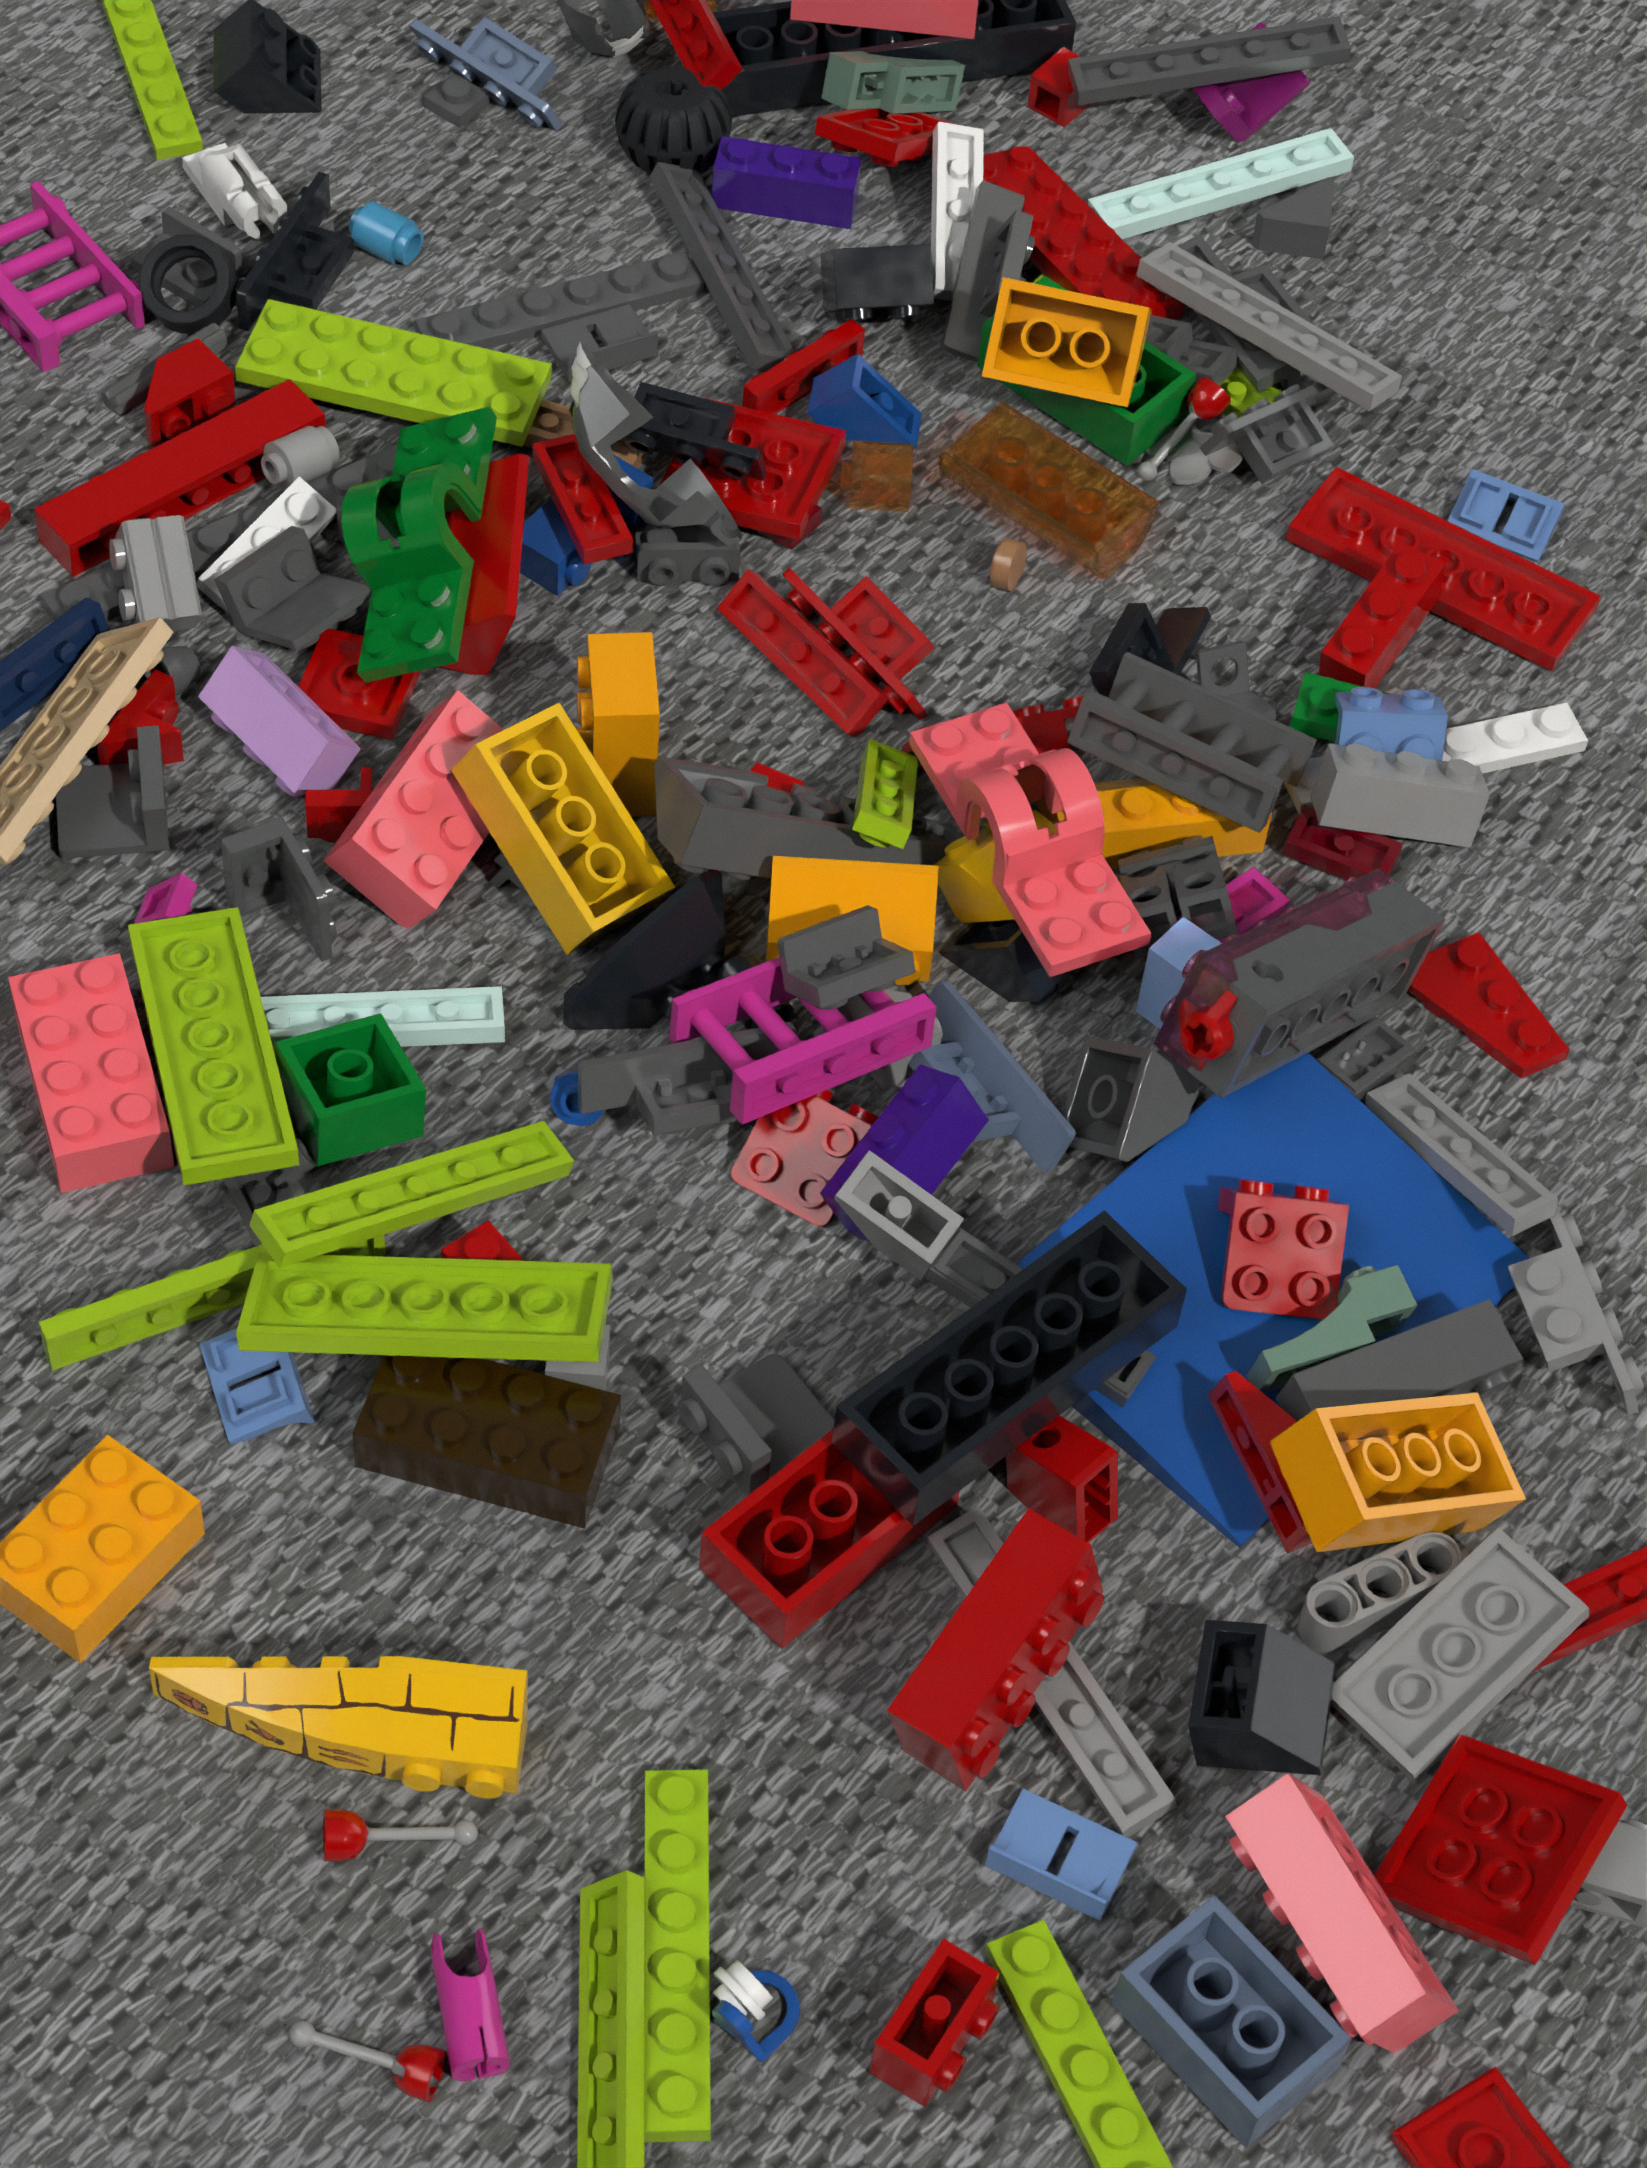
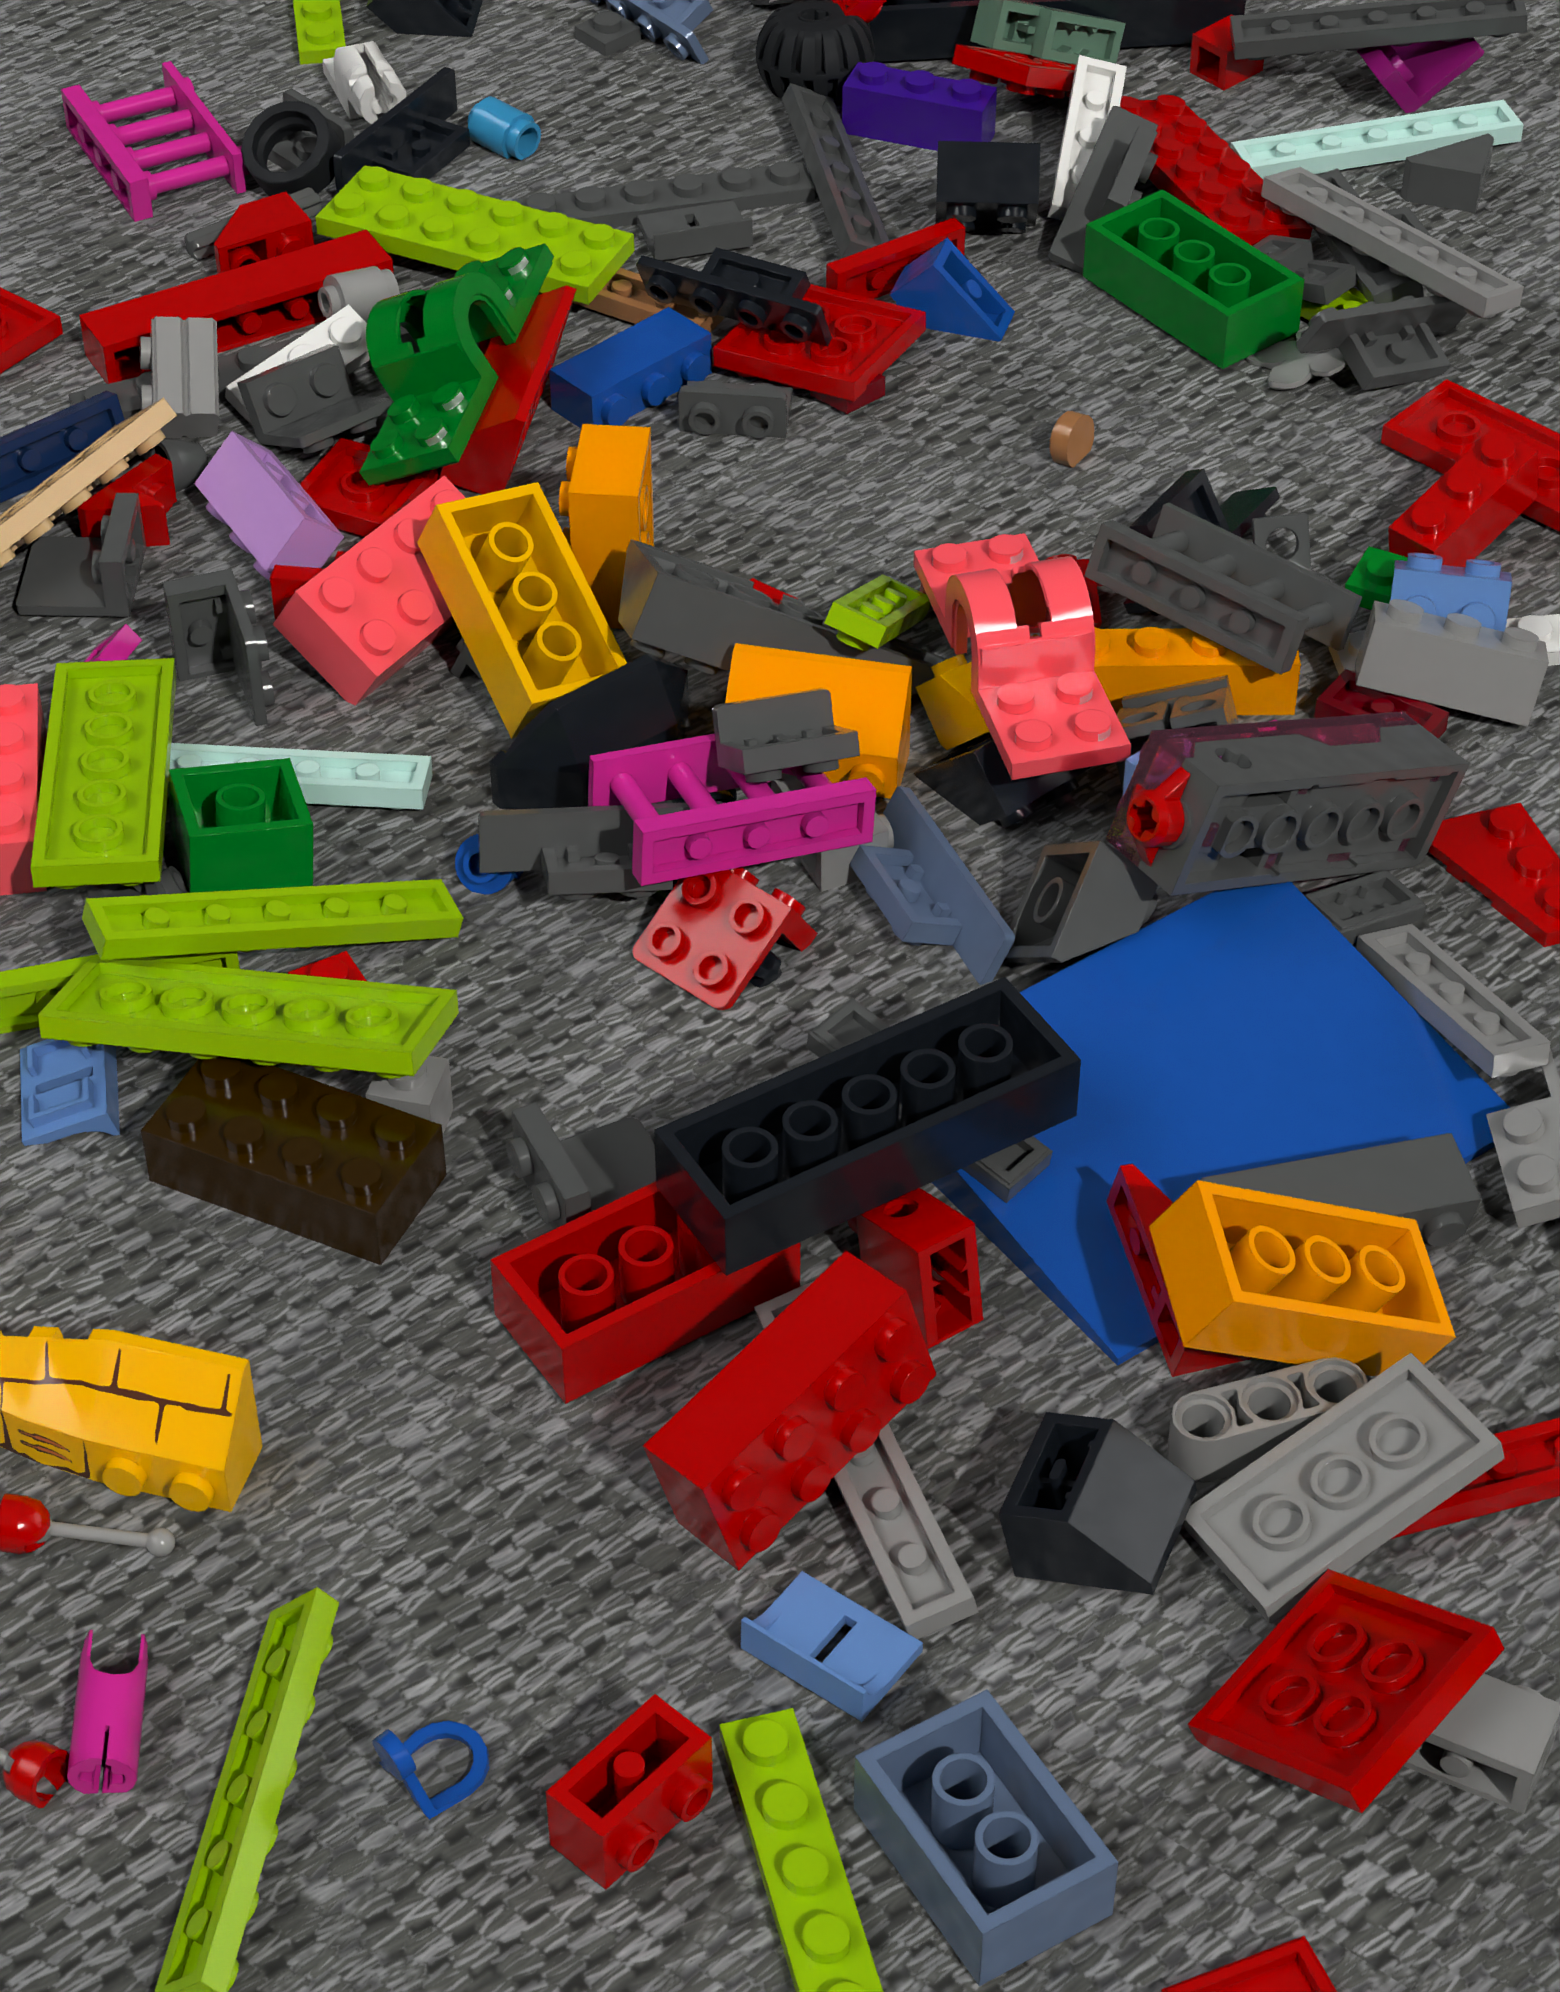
camera: 15 degrees right, 10 degrees down
(582, 500) = (629, 339): red plate -> none
(607, 414) = (664, 259): dark grey animal -> none
(677, 1957) = (357, 1698): lime plate -> none
(742, 1990) = (418, 1730): white plate -> none
(802, 653) = (832, 498): red plate -> none
(874, 630) = (910, 480): red bracket -> none
(878, 476) = (952, 354): clear orange brick -> none
(897, 1214) = (784, 978): light grey slope -> none
(916, 1134) = (816, 937): dark purple brick -> none
(1051, 489) = (1131, 376): clear orange brick -> none
(1066, 342) = (1168, 232): light orange slope -> none
(1204, 402) = (1310, 302): hinge -> none
(1282, 1249) = (1219, 1063): red bracket -> none
(1340, 1915) = (1137, 1737): coral brick -> none
(1366, 1308) = (1306, 1126): sand green slope -> none

